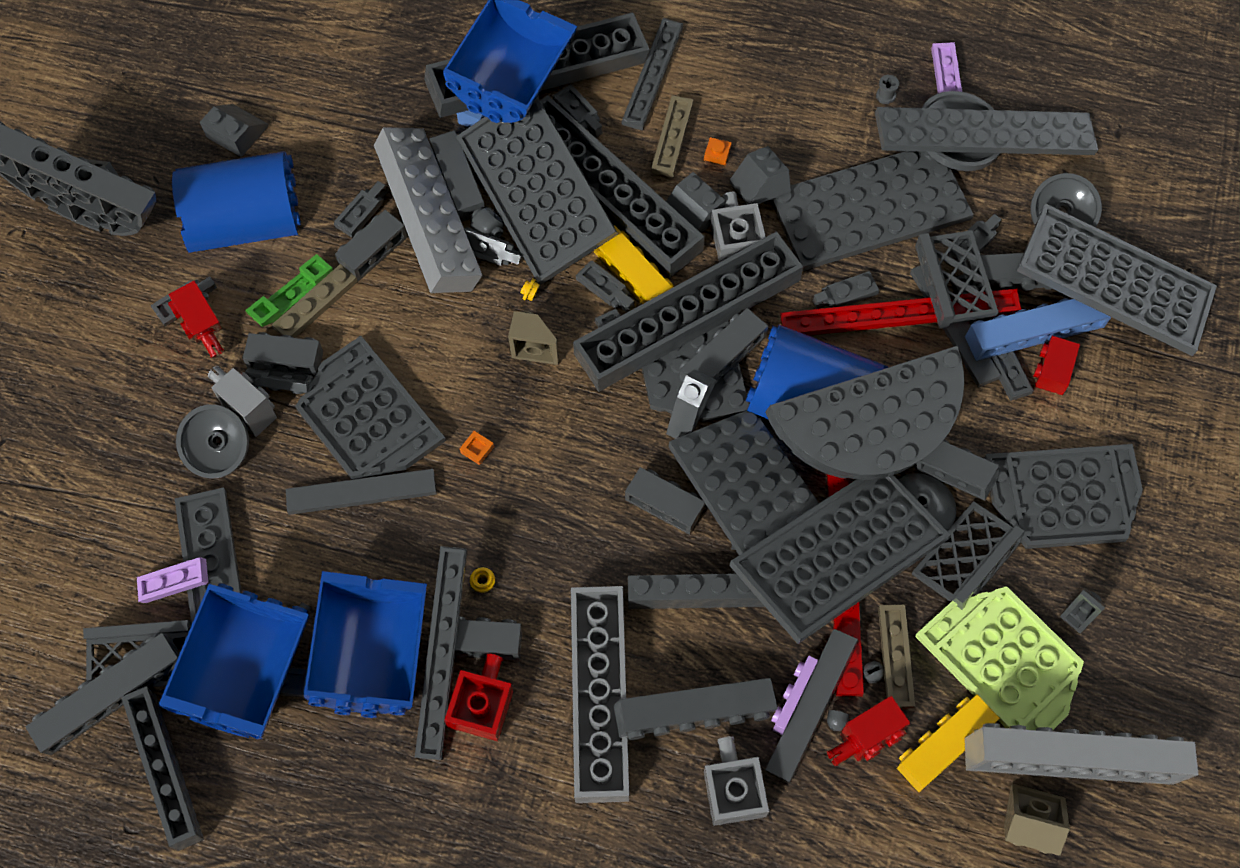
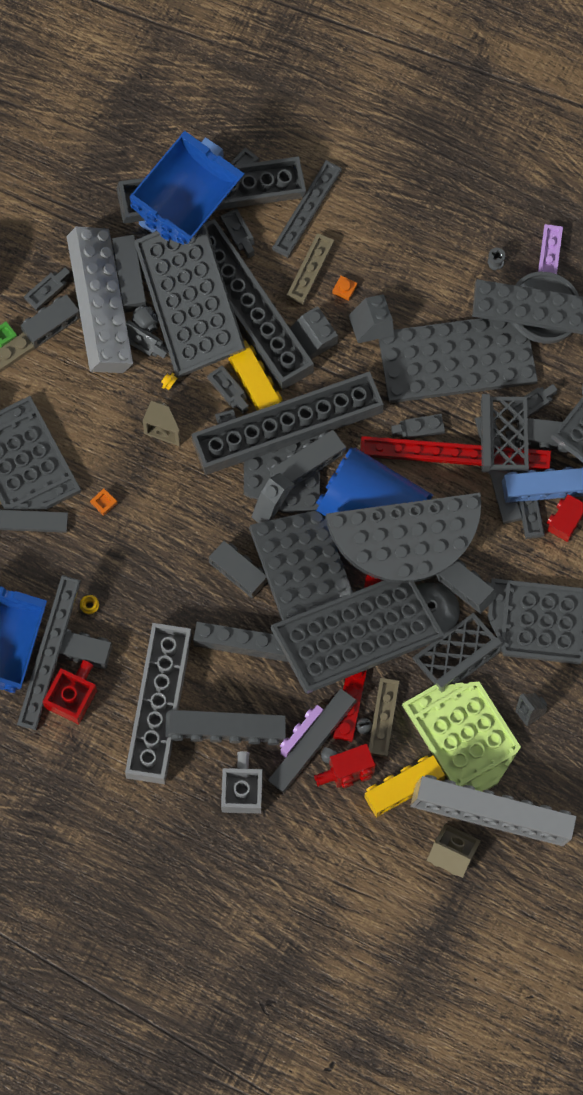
camera: 10 degrees right, 5 degrees up
(735, 226) = (342, 359): light grey brick -> none

